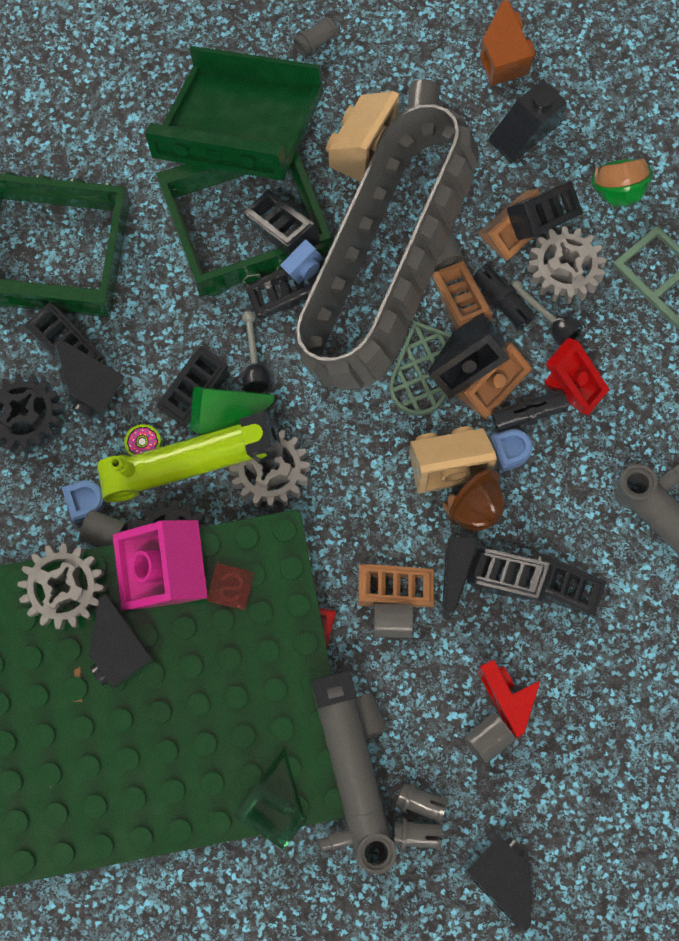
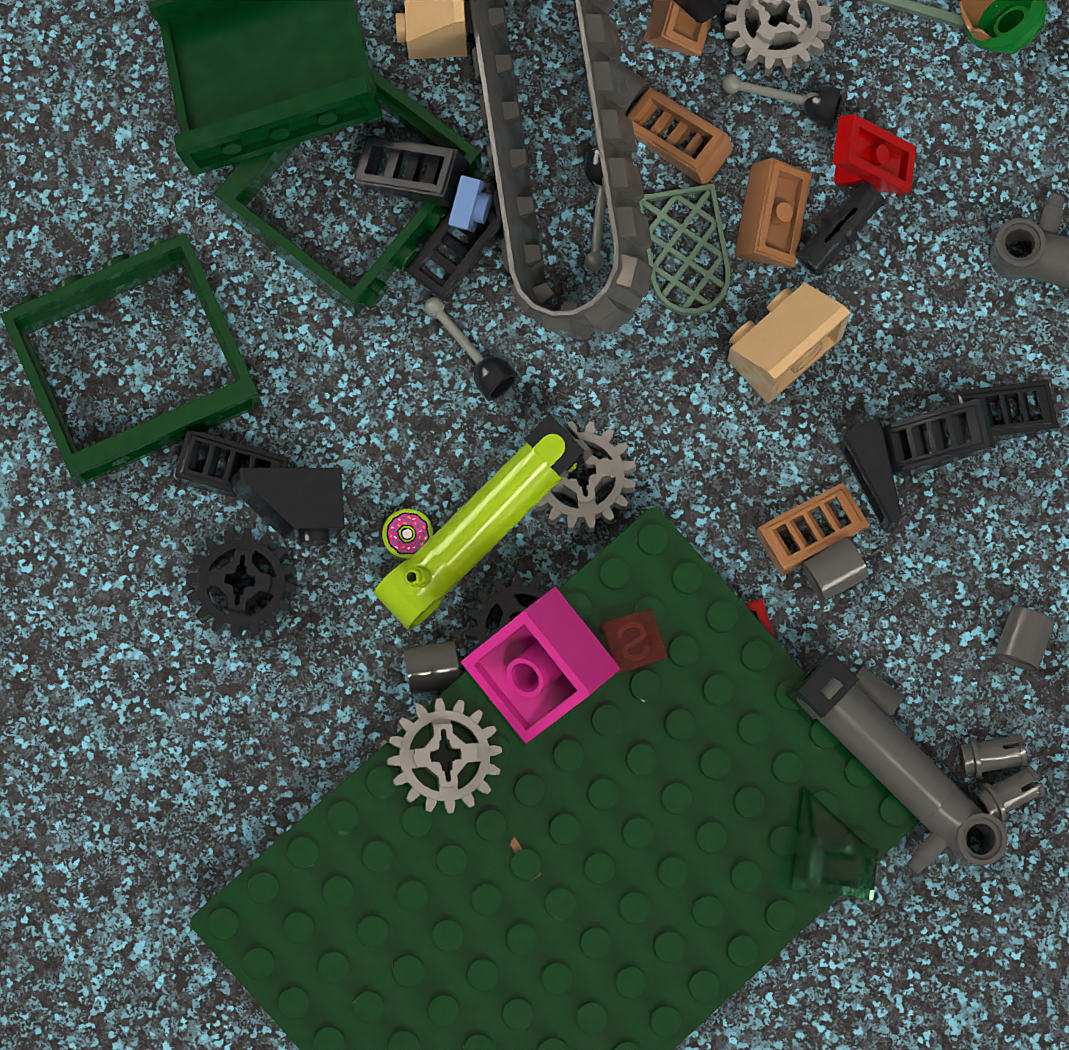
camera: 30 degrees left, 5 degrees up
(82, 498) = (381, 644): medium blue tile -> none
(116, 646) = (550, 786): black slope -> none
(193, 367) = (429, 389): black slope -> none
(223, 408) = (485, 437): green slope -> none
(468, 356) = (733, 203): black slope -> none
(477, 503) = (850, 376): reddish brown piece -> none
(503, 297) = (725, 105): black pin -> none
(511, 448) = (847, 282): medium blue tile -> none
(512, 708) = (1031, 589): red slope -> none

